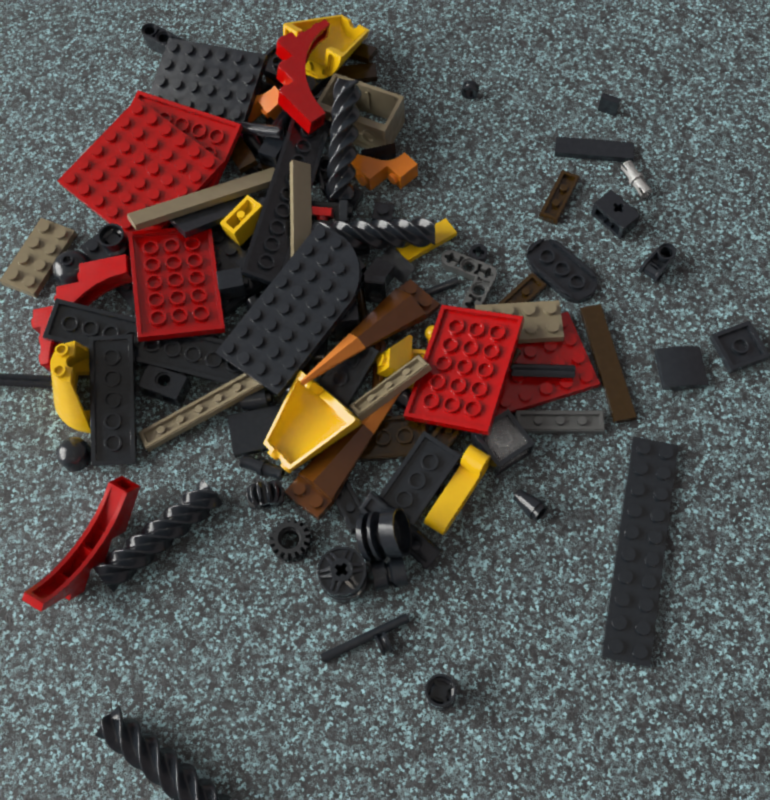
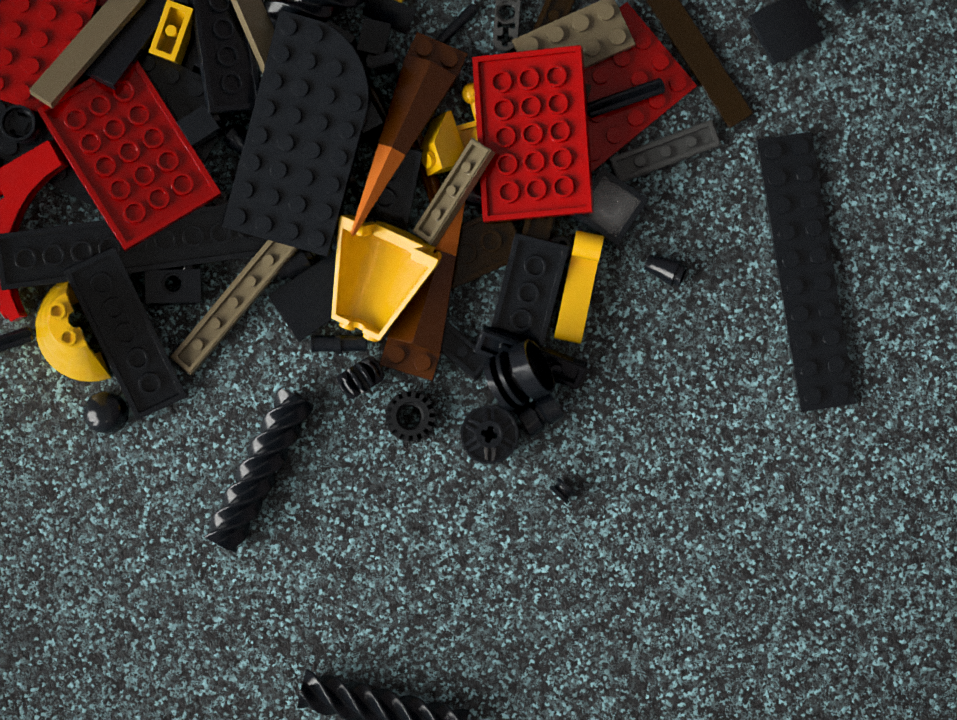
camera: 30 degrees left, 20 degrees up
(72, 573) = (189, 517): red arch -> none
(364, 638) = (538, 491): black bar -> none
(440, 692) = (644, 518): black wheel -> none

